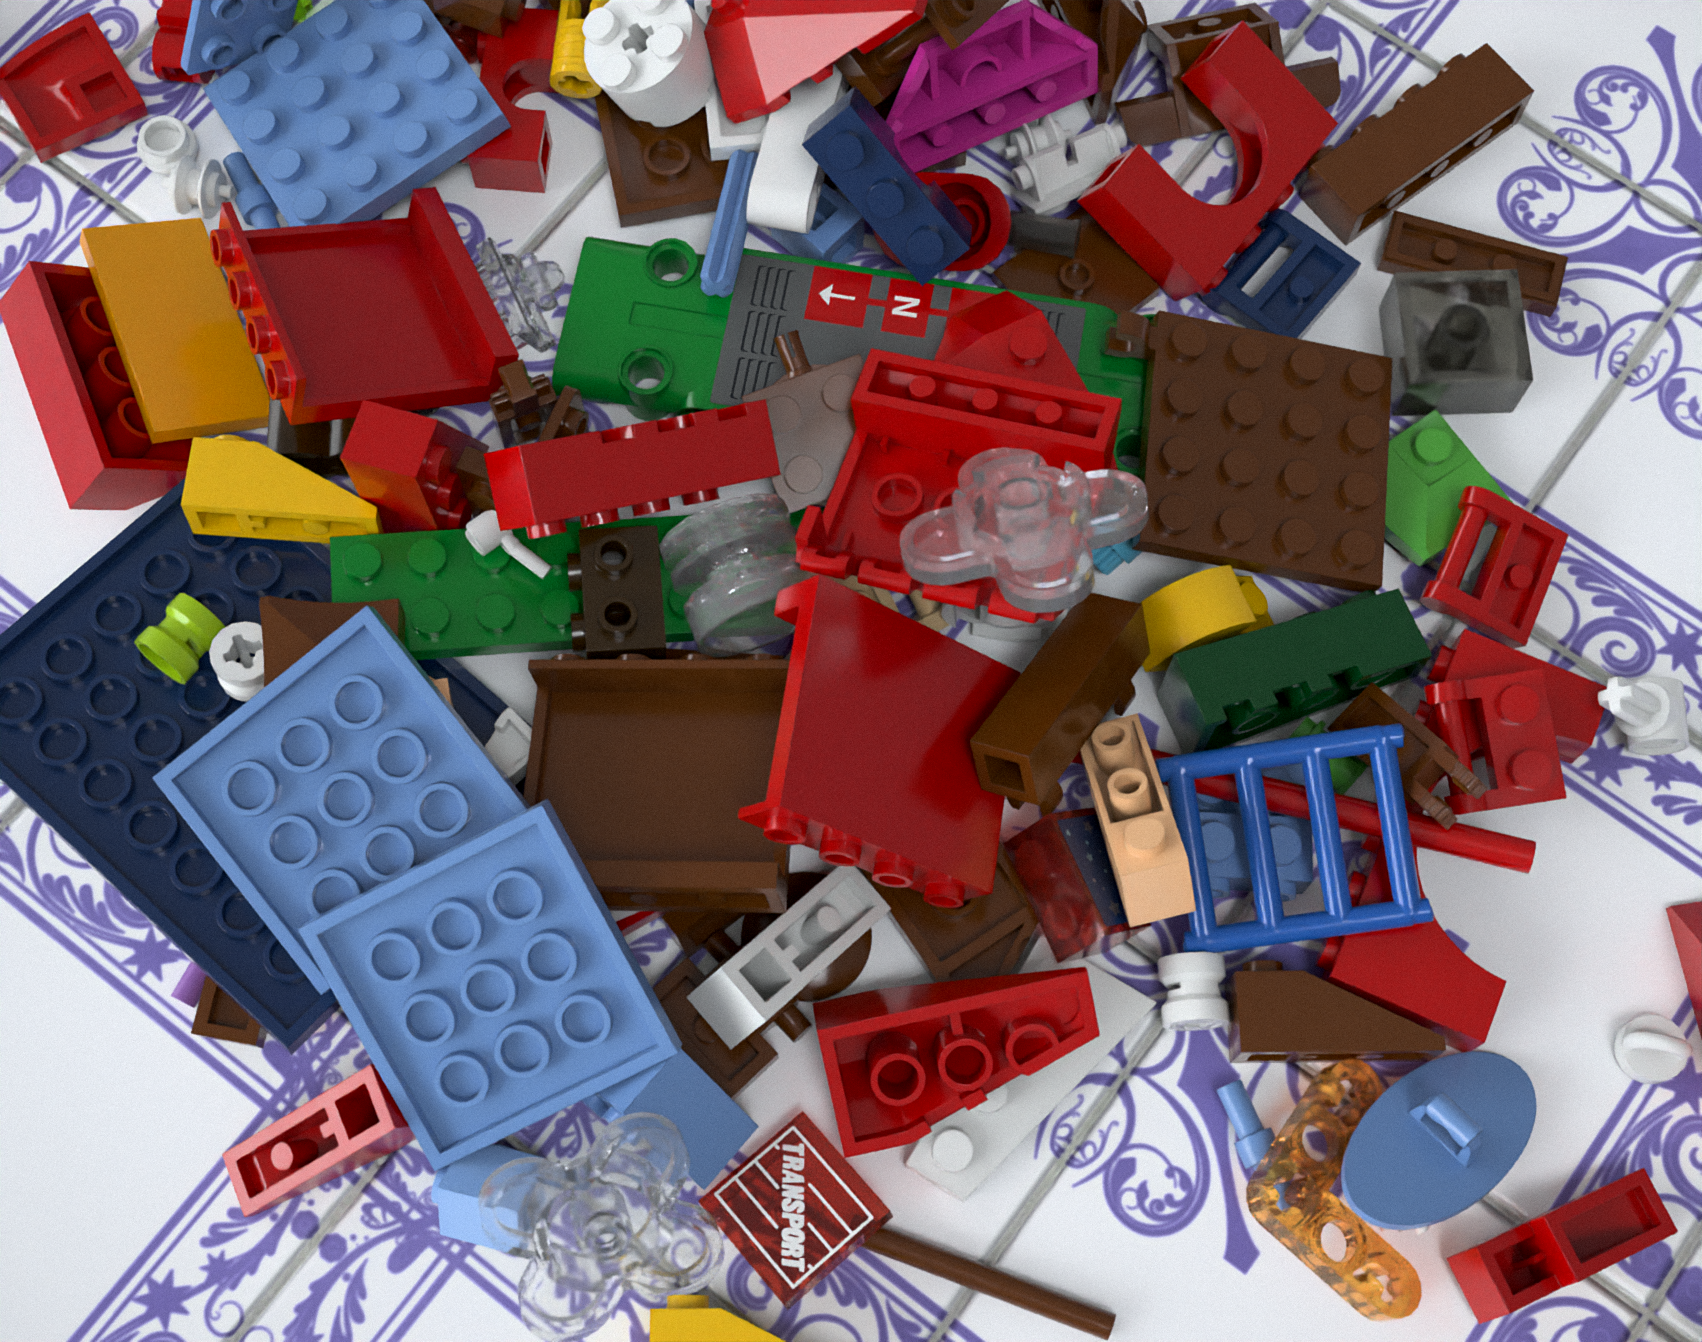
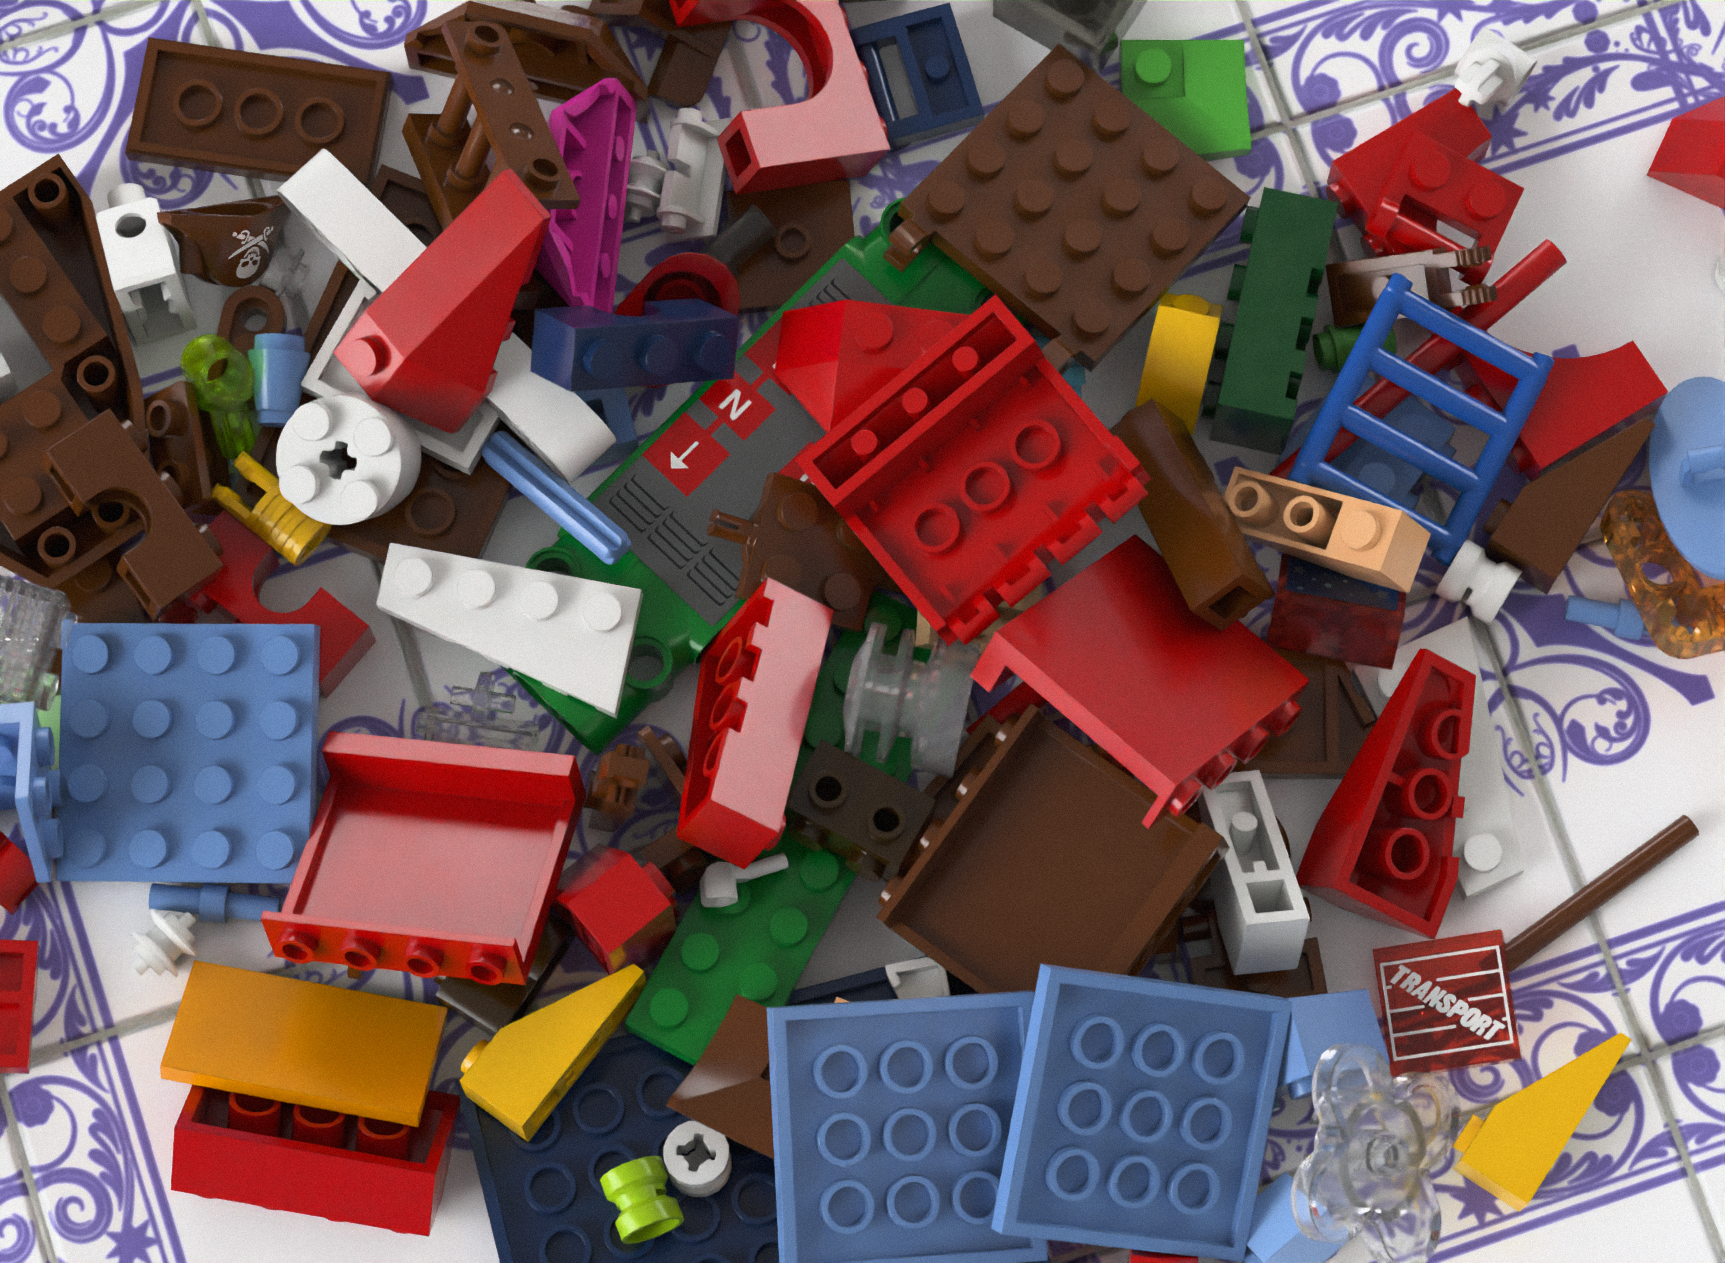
camera: 55 degrees left, 5 degrees up
(164, 142) = (92, 948): white plate -> none
(617, 268) = (538, 622): none -> white wing
(1025, 528) = (1061, 446): clear plant -> none
(1512, 574) = (1305, 87): red plate -> none

